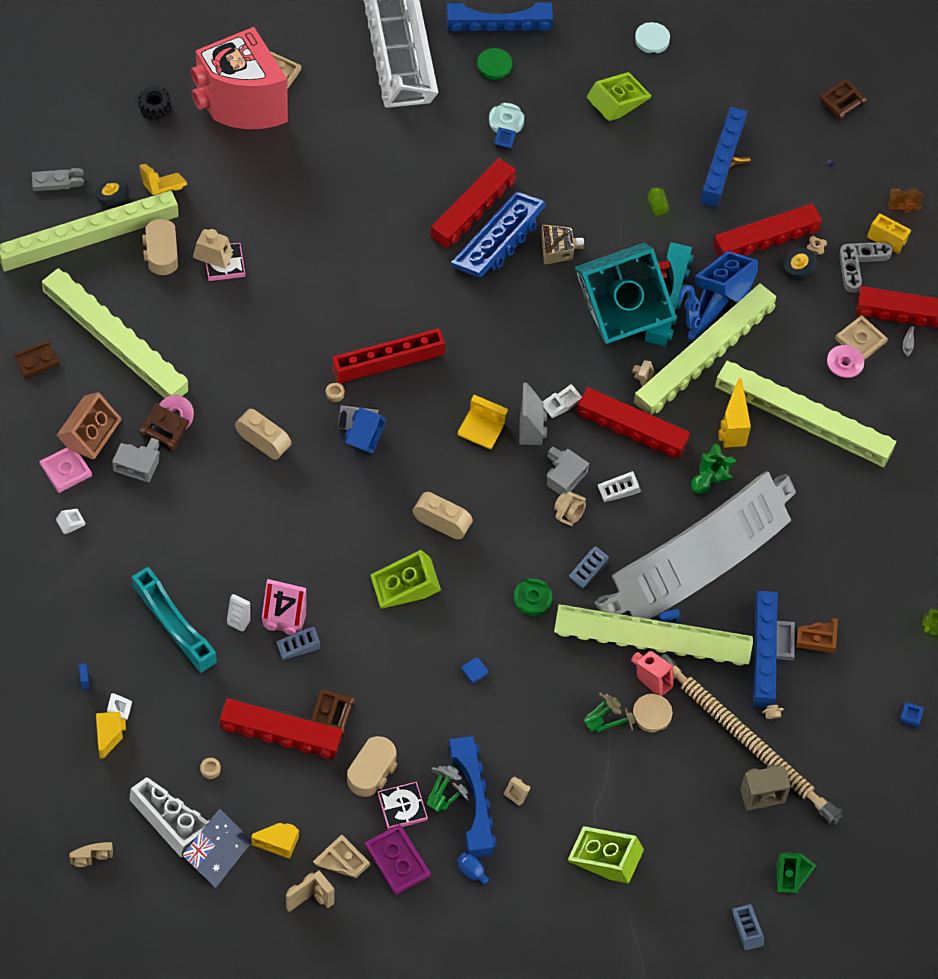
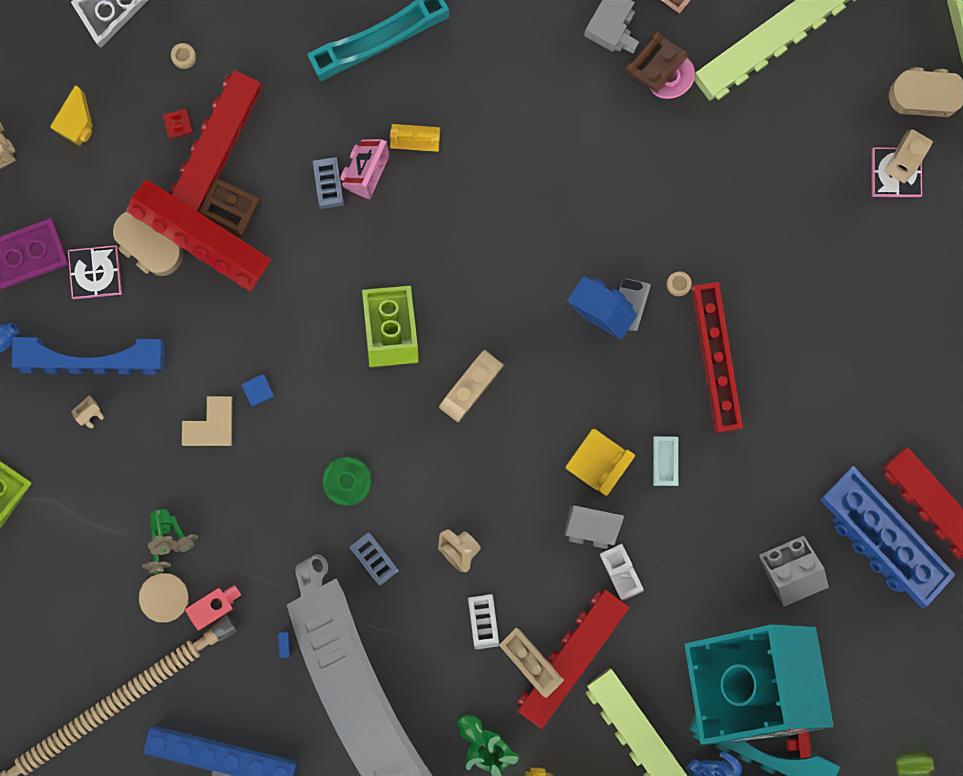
camera: 100 degrees right, 25 degrees up
(217, 848) = (72, 46): dark blue sticker -> none
(238, 613) = (375, 115): white slope -> none
(251, 585) = (415, 137): none -> yellow hinge
(263, 434) = (623, 180): tan brick -> none
(268, 763) = (178, 124): none -> red tile
(342, 858) = (38, 191): tan wing -> none
(360, 723) = (198, 235): none -> red brick
(436, 799) = (102, 328): green plant -> none
(471, 384) = (665, 461): none -> light aqua tile
(511, 695) = (214, 431): none -> tan tile
(535, 290) = (794, 571): none -> light grey slope
(559, 244) = (862, 616): torso -> none
(567, 472) = (512, 559): light grey hinge -> none
(642, 445) = (531, 662): none -> tan plate
(644, 373) = (645, 689): tan tile -> none
(653, 634) = (262, 621): yellowish green brick -> none
(765, 787) = (29, 712): dark tan brick -> none
(772, 712) = (135, 747): tan plate -> none

